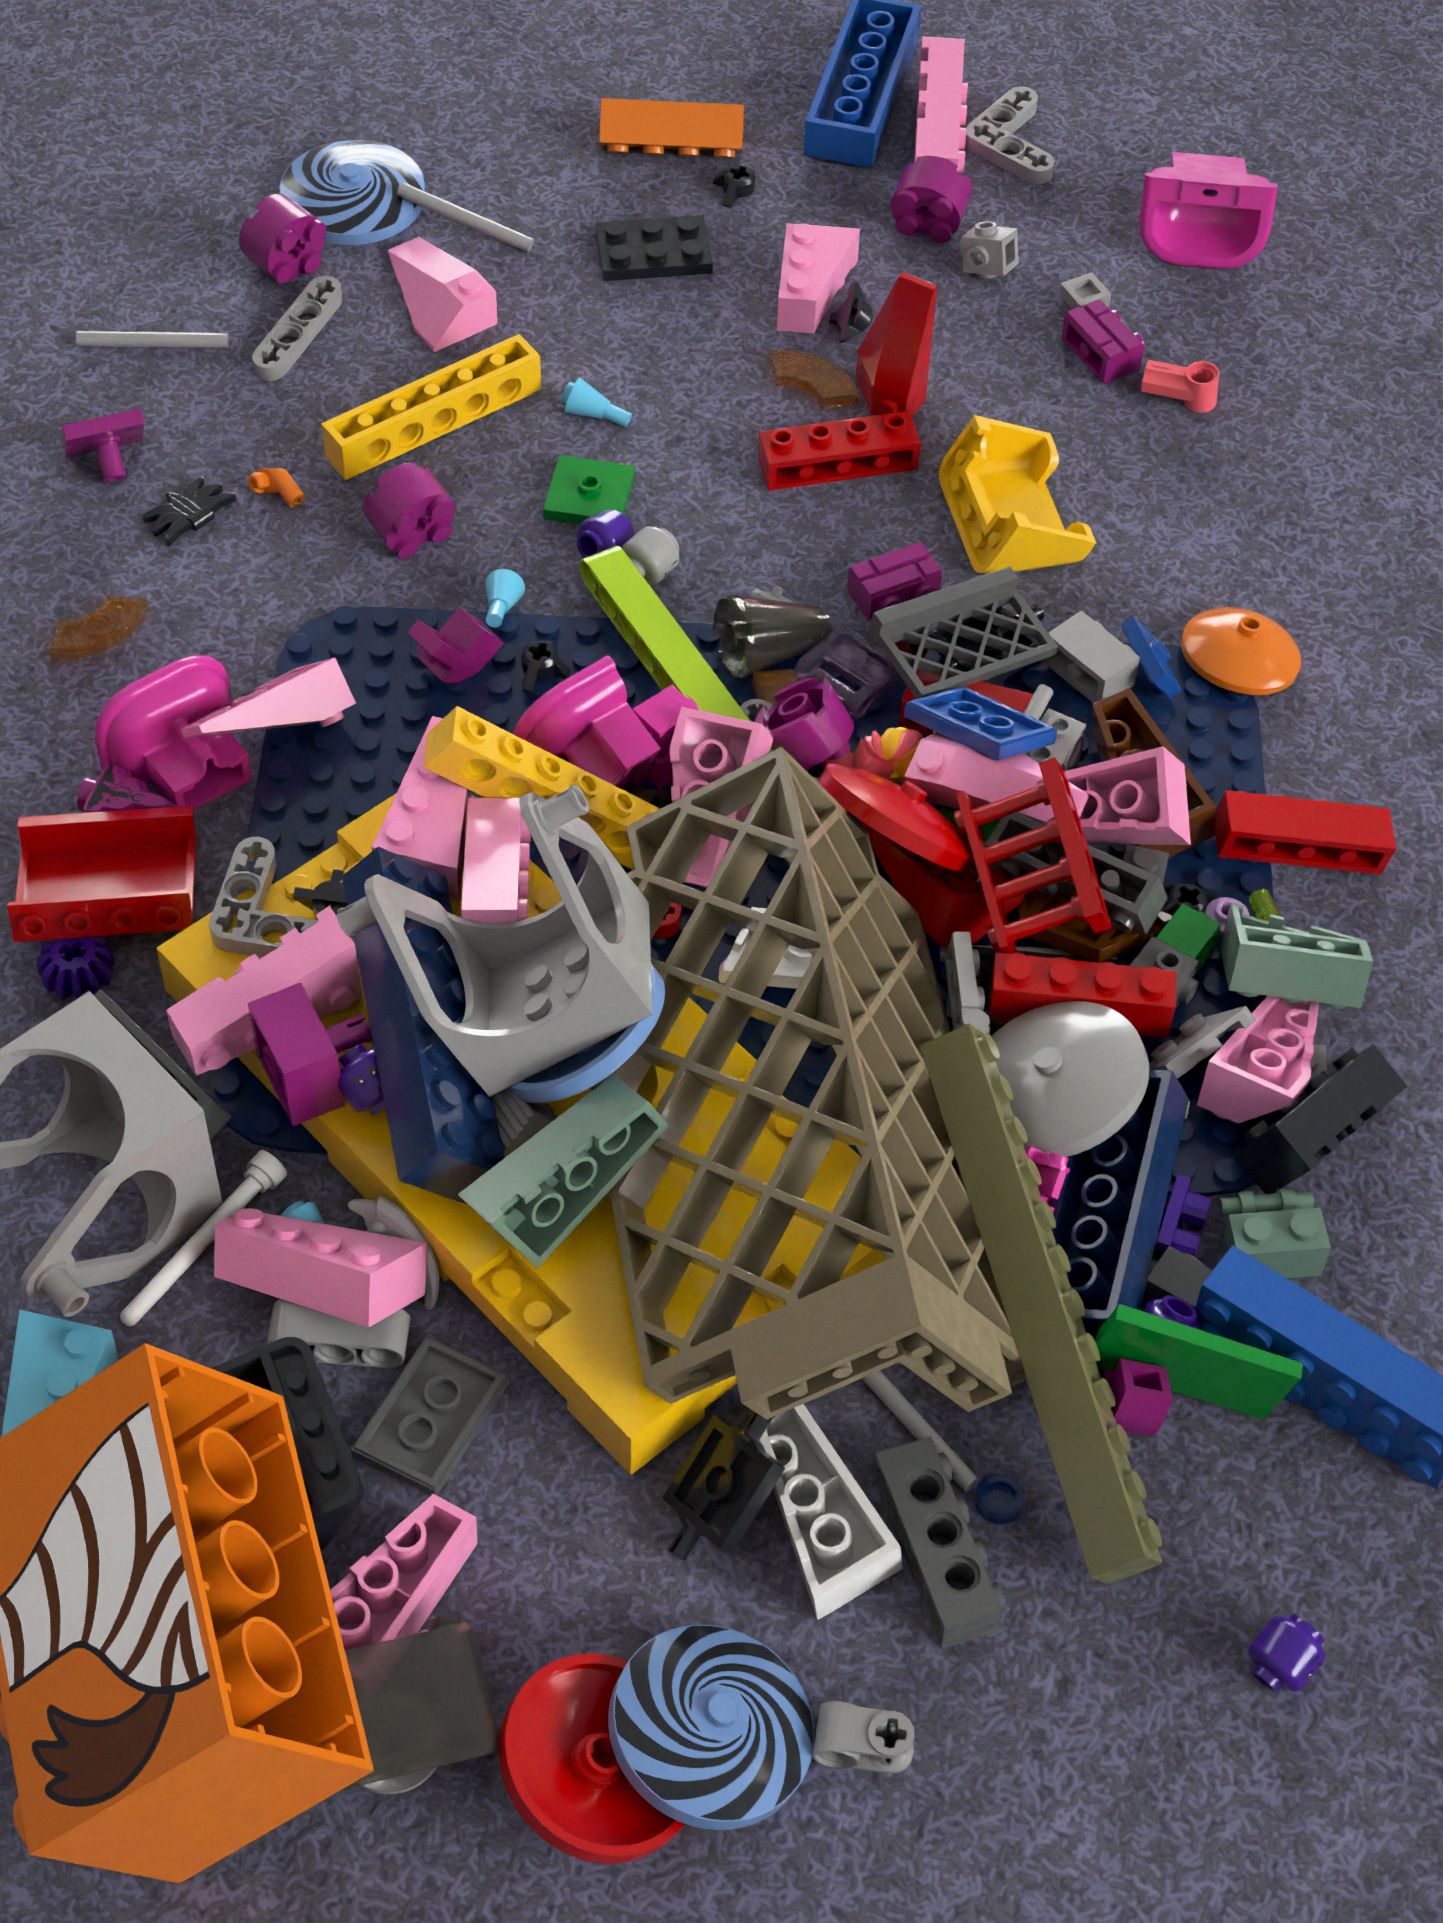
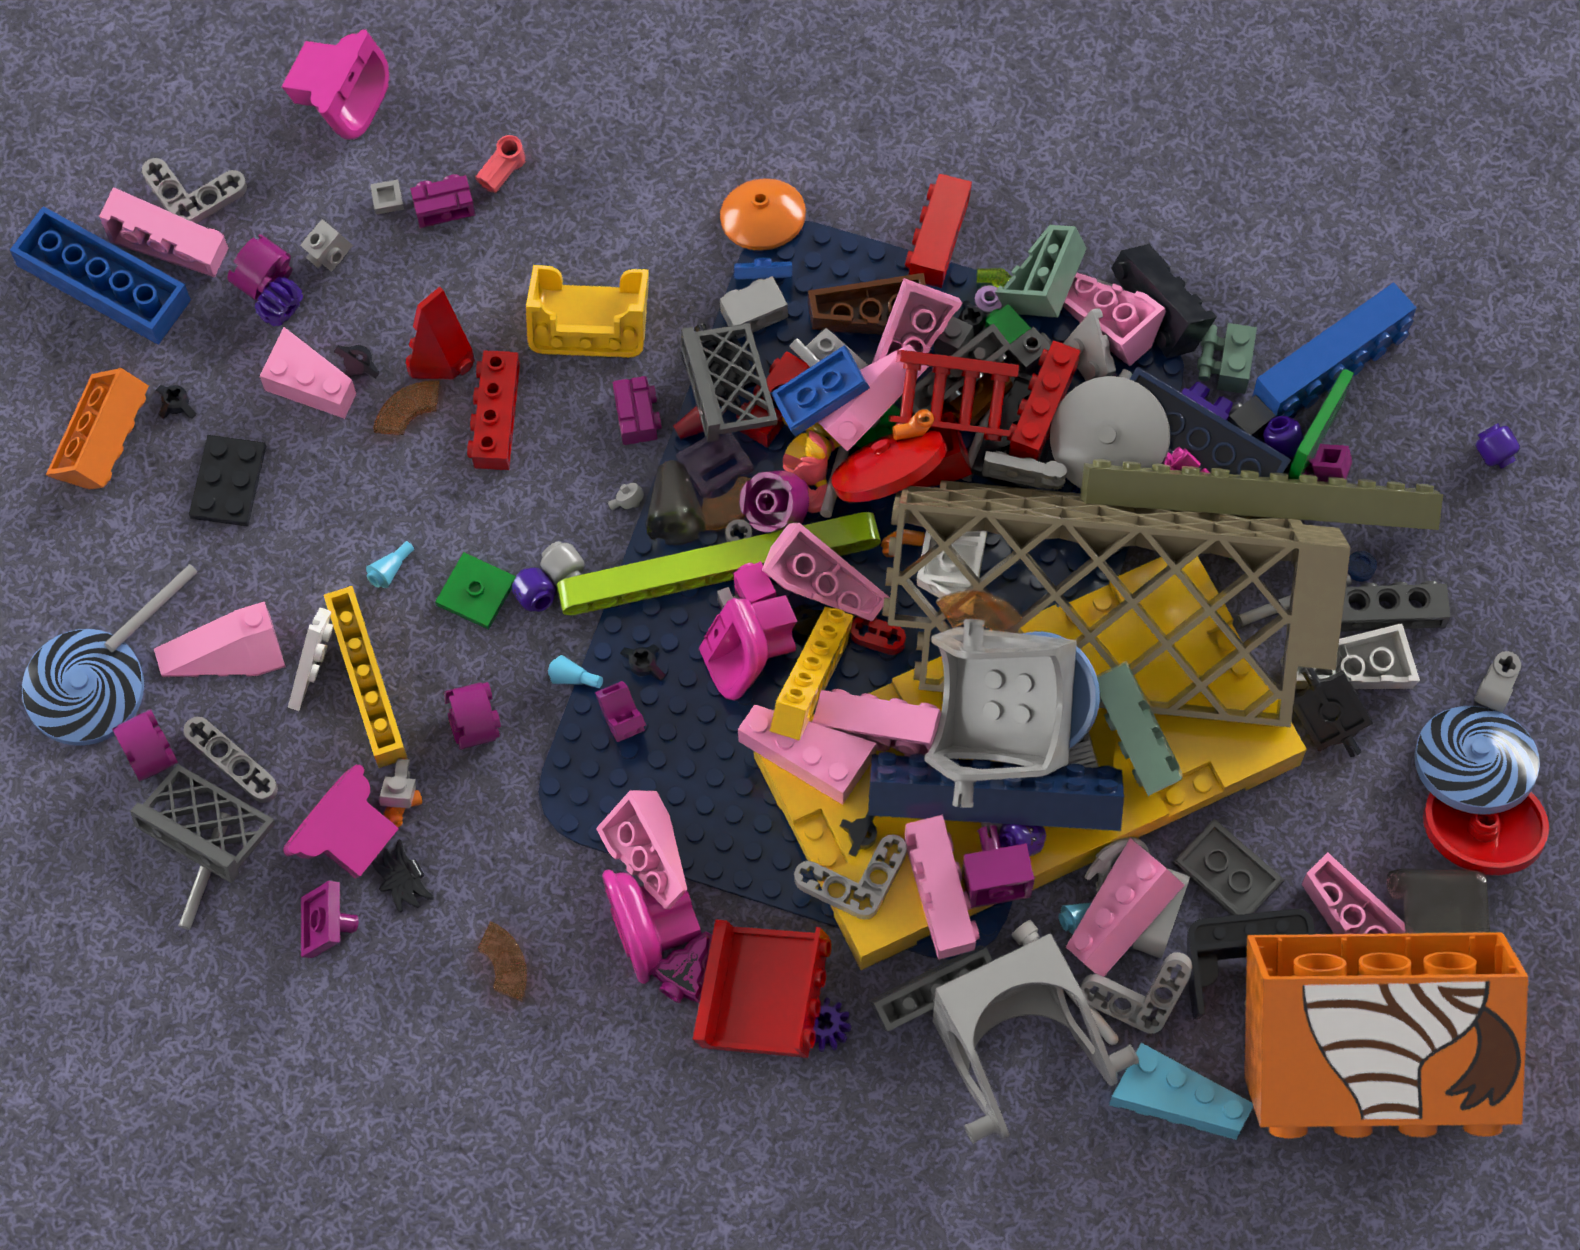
camera: 70 degrees left, 15 degrees up
(178, 1321) = (1140, 1005): none -> light grey beam
(180, 303) = (183, 837): none -> dark grey fence
(223, 416) = (343, 826): none -> dark pink piece
(294, 470) = (400, 789): none -> light grey plate
(438, 337) = (312, 652): none -> white wing
(676, 911) = (980, 606): none -> clear orange tile
(895, 225) = (278, 301): none -> dark purple gear
(957, 821) = (915, 427): none -> orange arm

